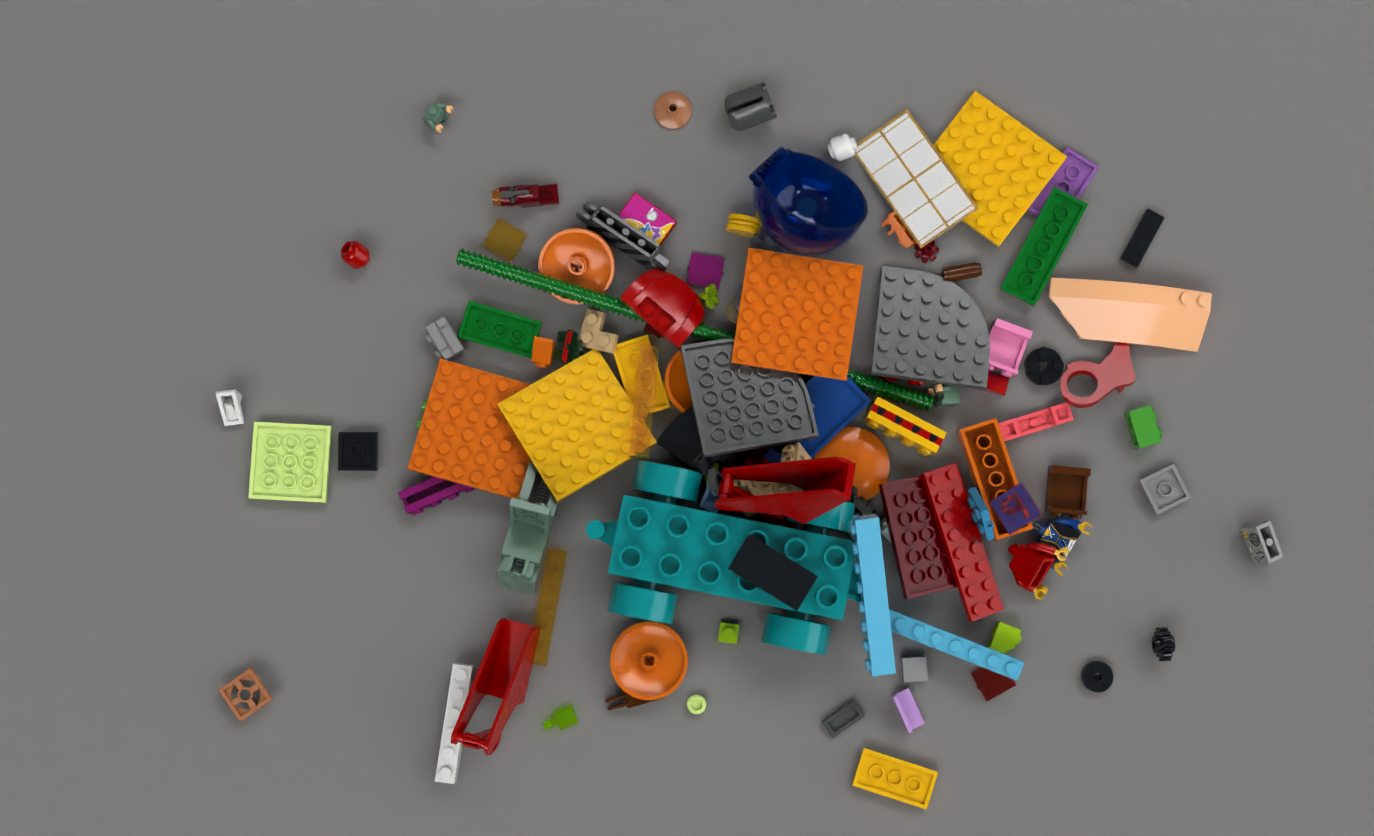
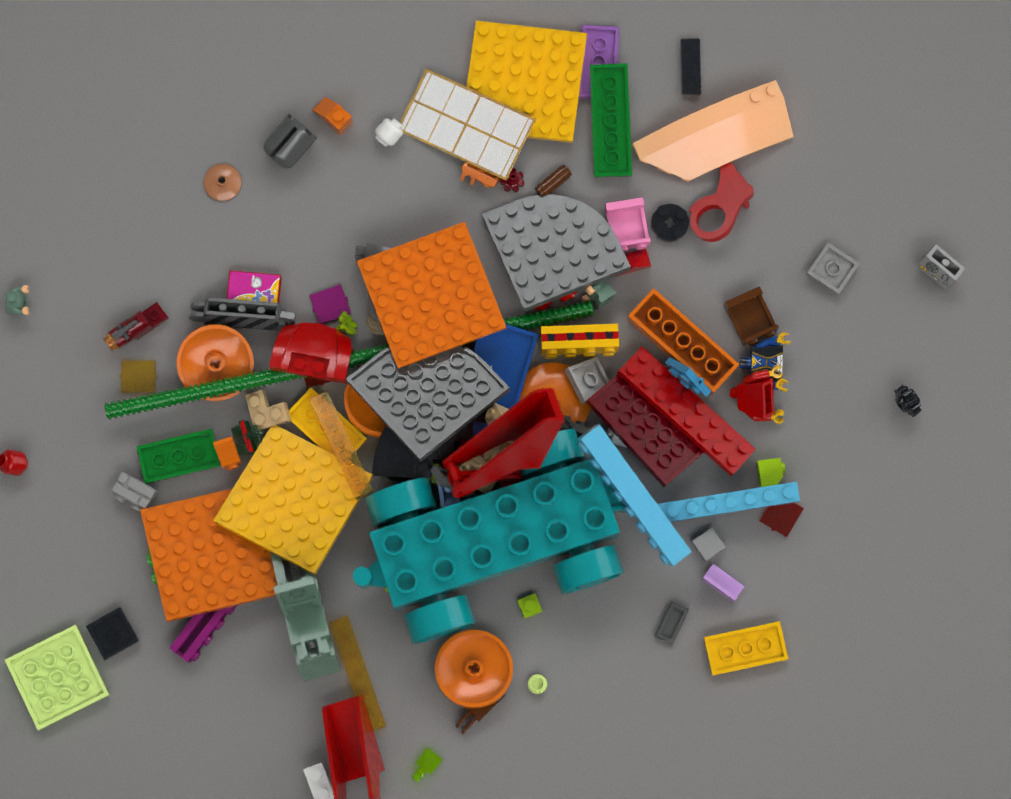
camera: 30 degrees left, 5 degrees down
(743, 225) = (341, 246): yellow head -> none
(773, 572) = (536, 523): black tile -> none
(802, 105) = (333, 115): none -> orange slope
(806, 202) = (384, 195): clear blue windscreen -> none
(891, 464) = (587, 378): none -> light grey plate
(1015, 508) = (714, 355): piece -> none
(1036, 421) = (690, 273): coral slope -> none
(1103, 682) = (876, 457): black piece -> none
(1143, 427) = (784, 226): bright green brick -> none

